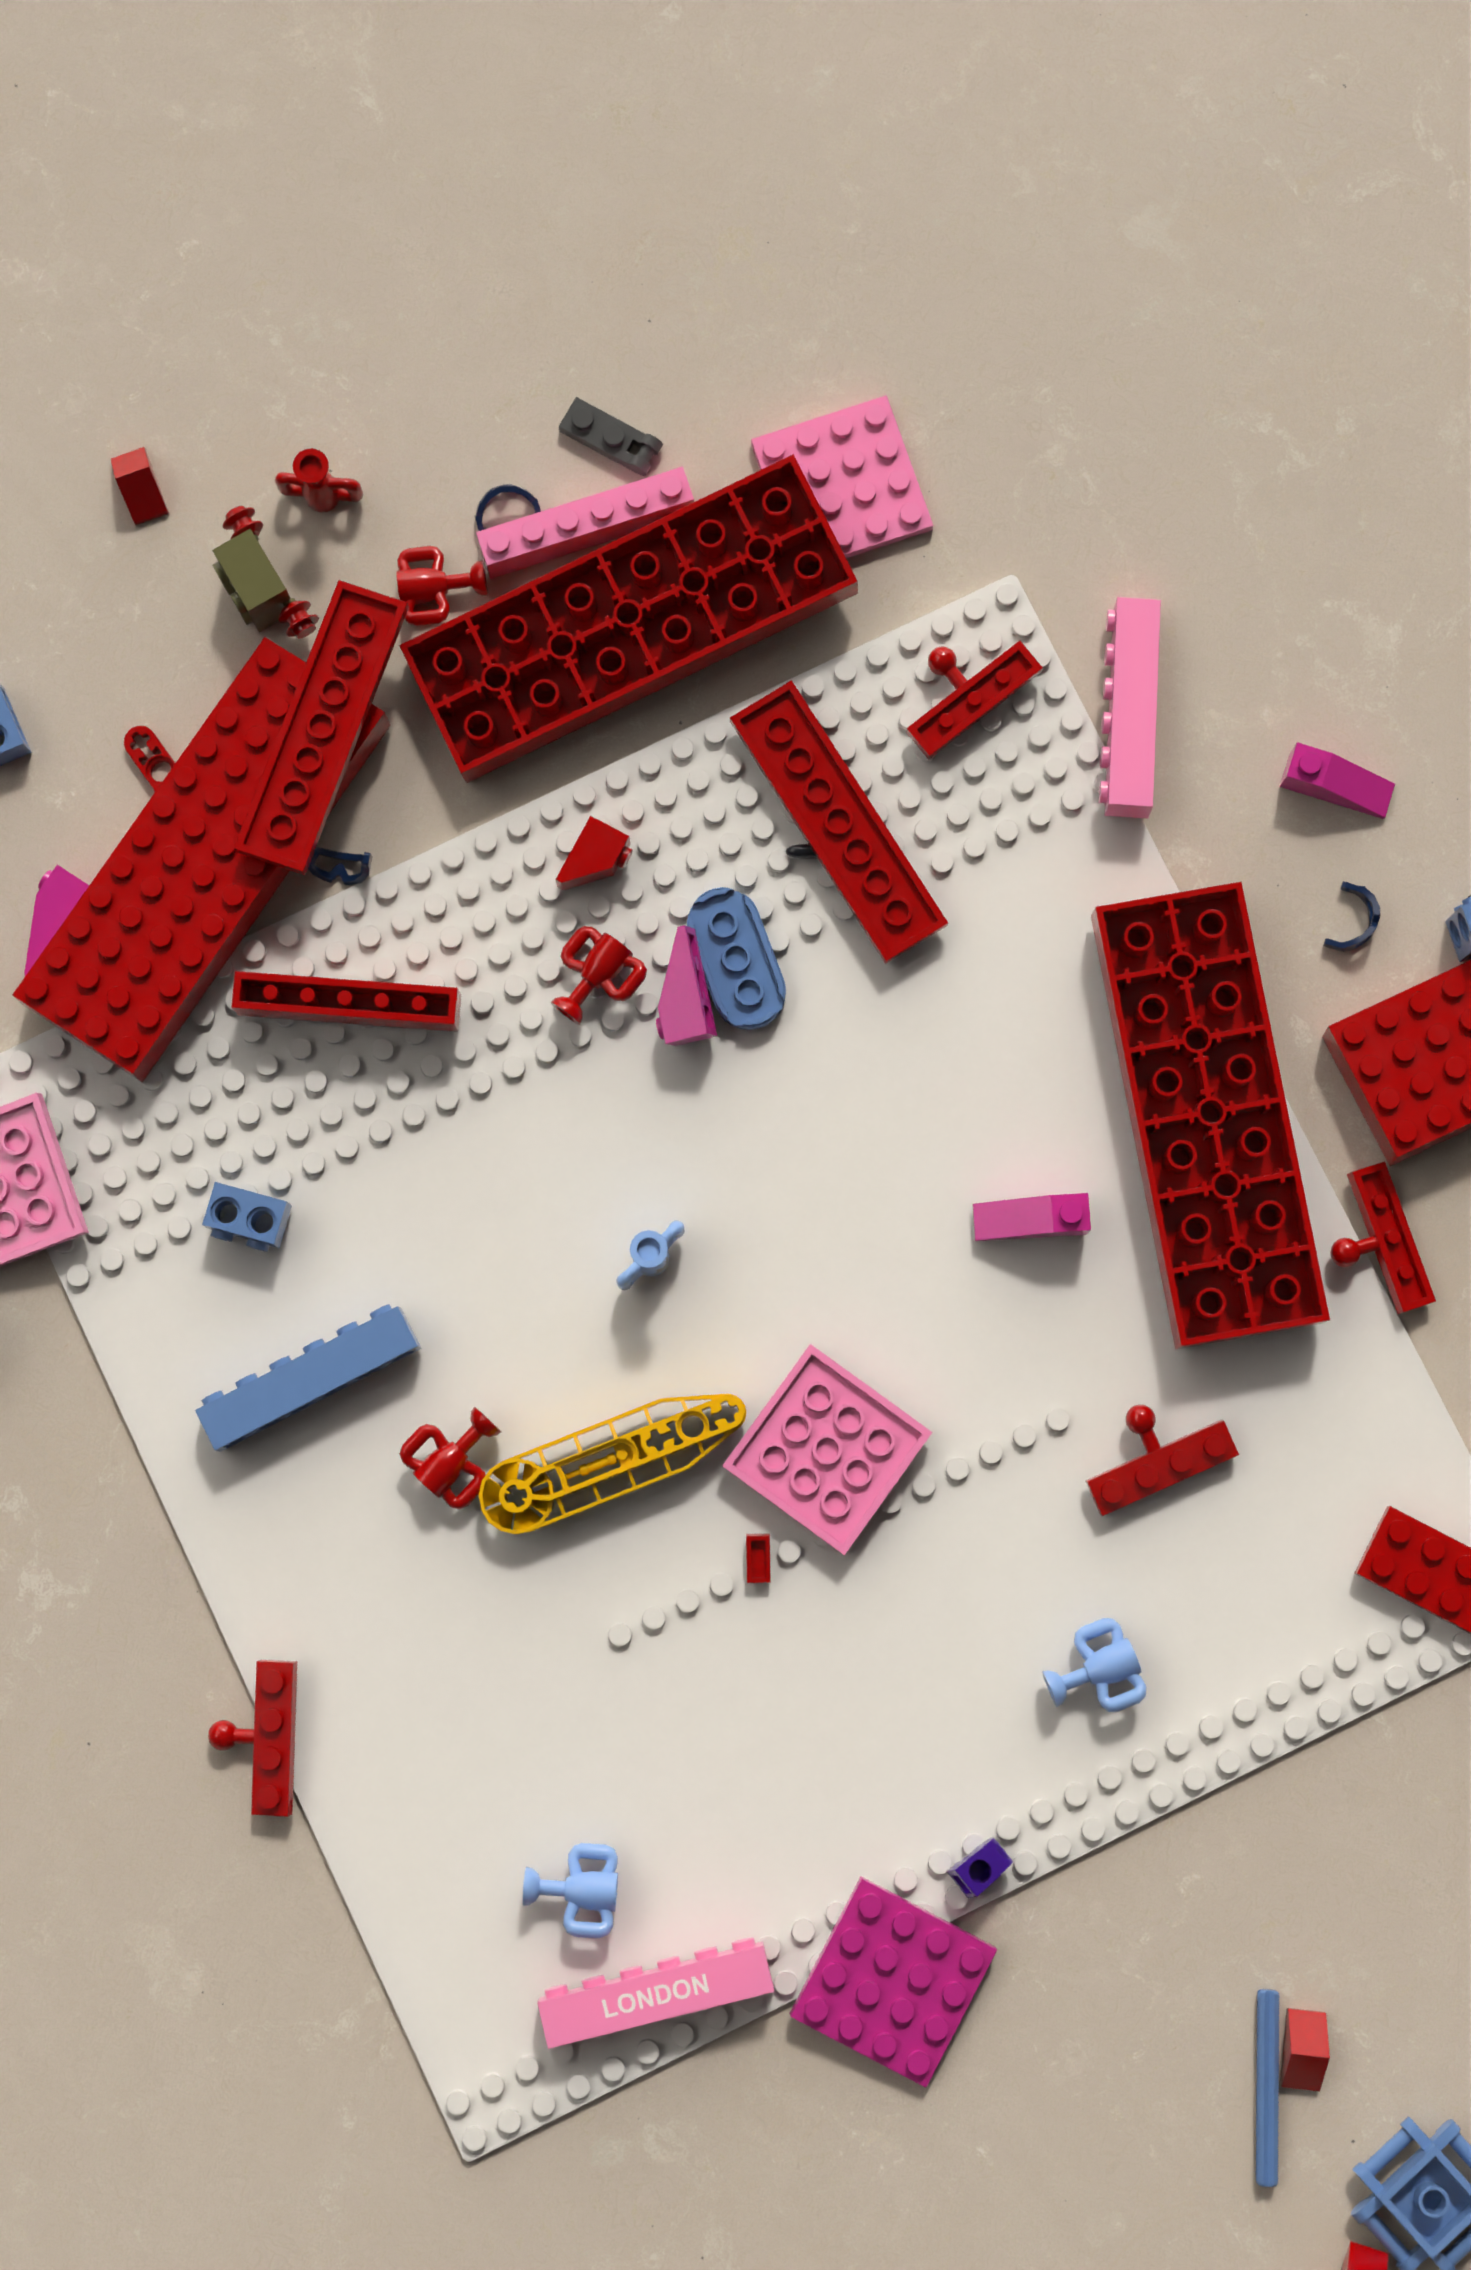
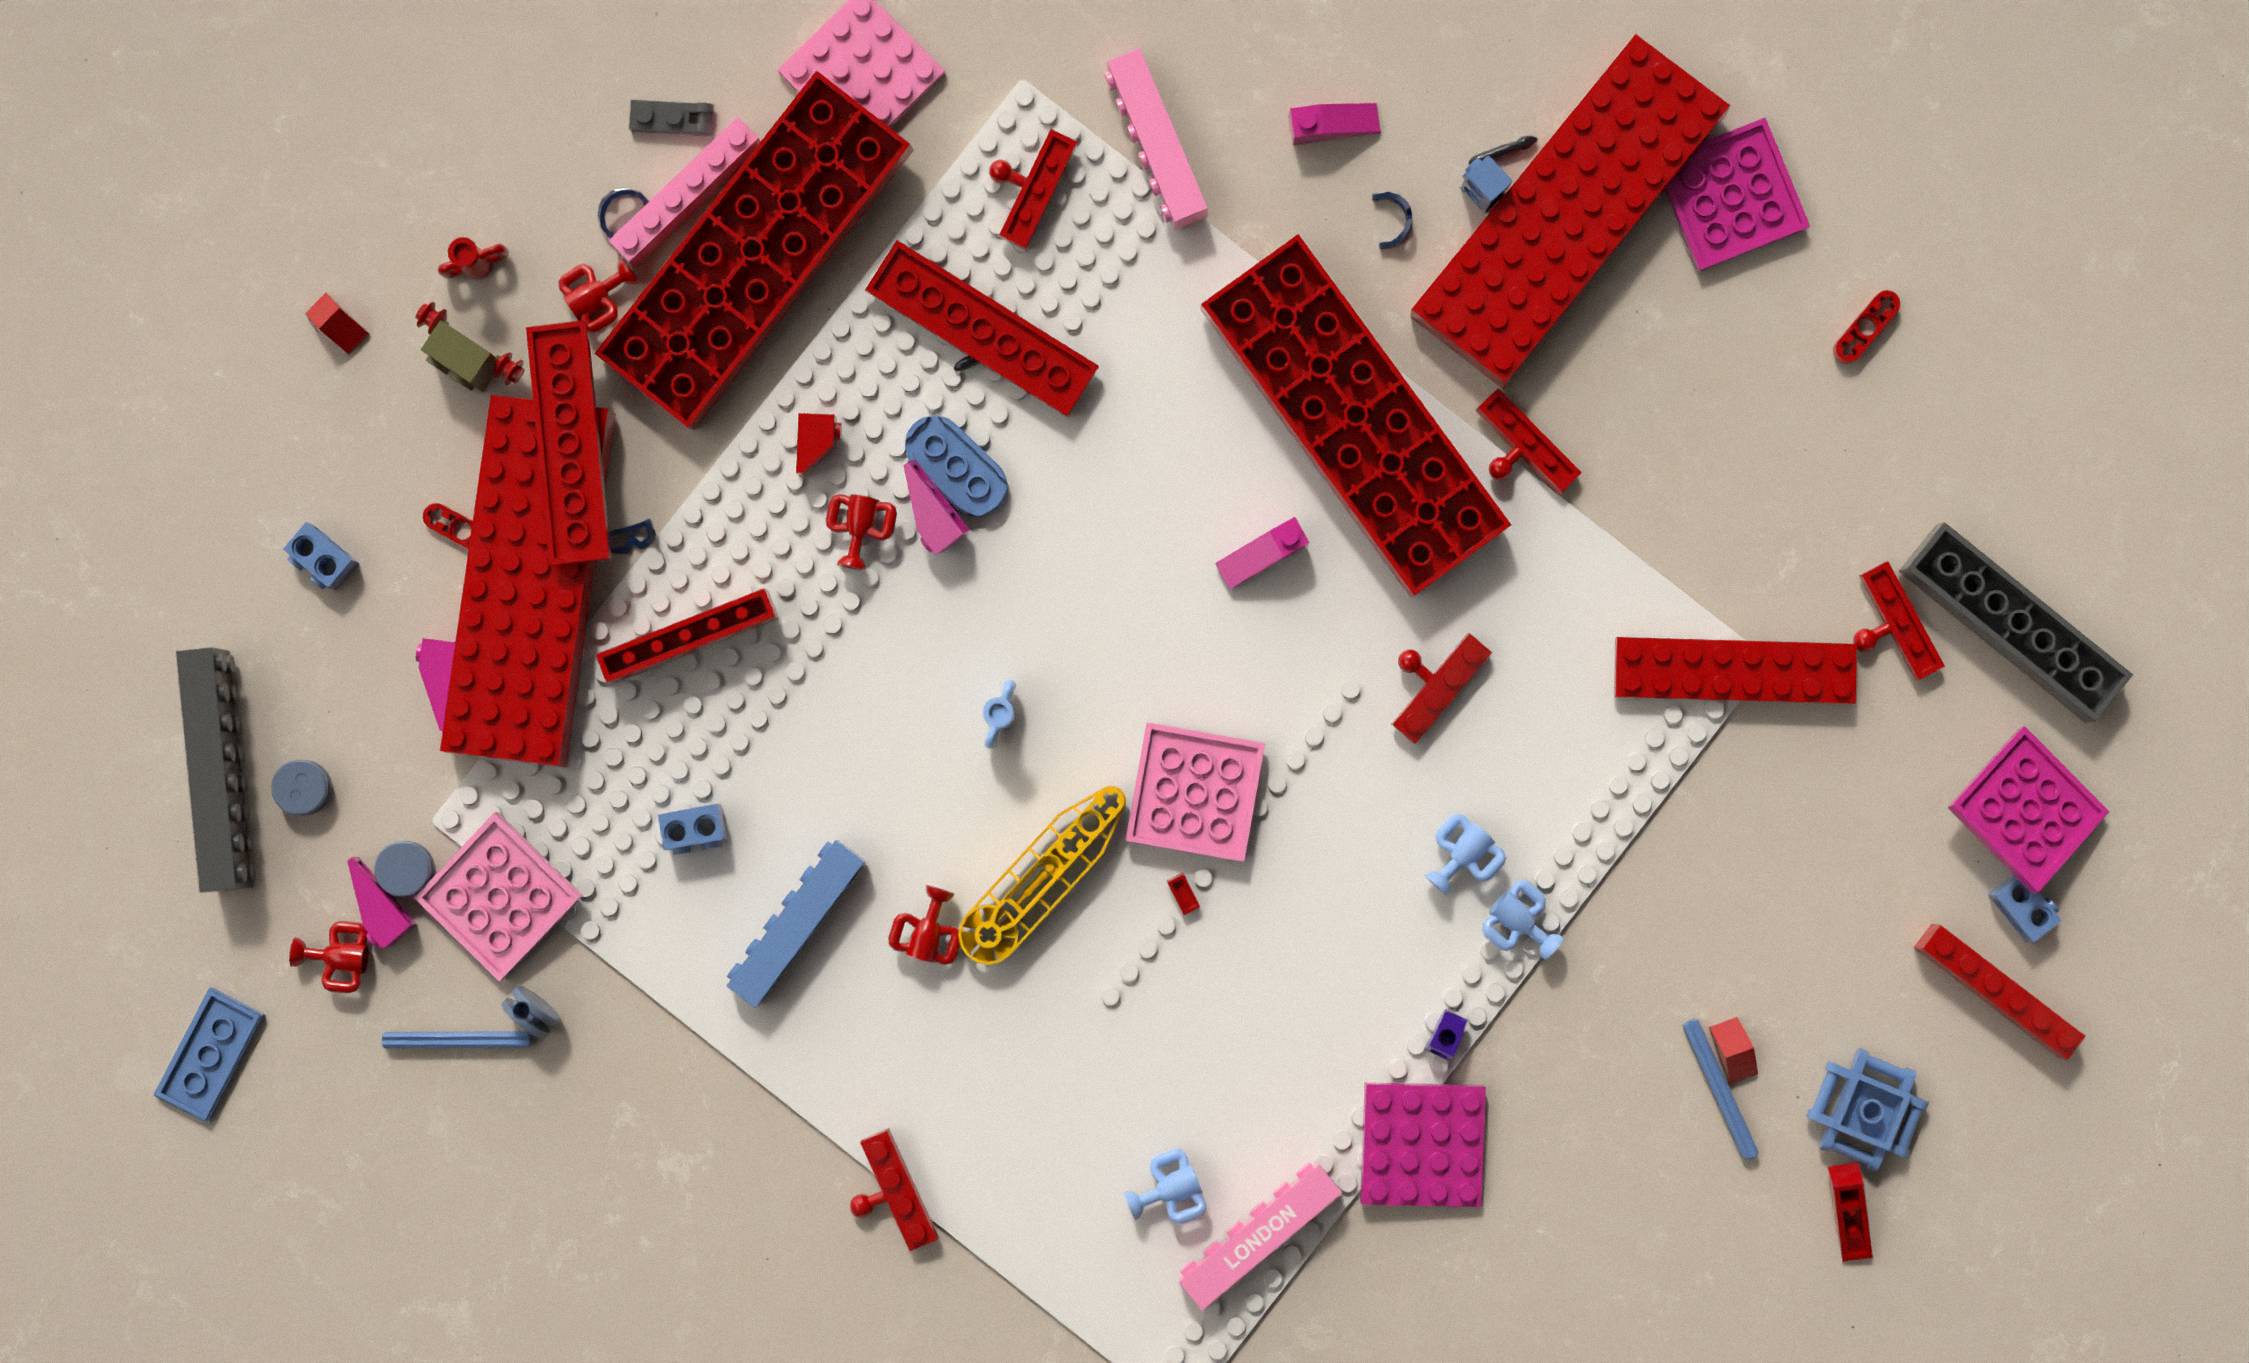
camera: 25 degrees left, 5 degrees up
(1127, 1776) = (1519, 919): none -> light blue piece

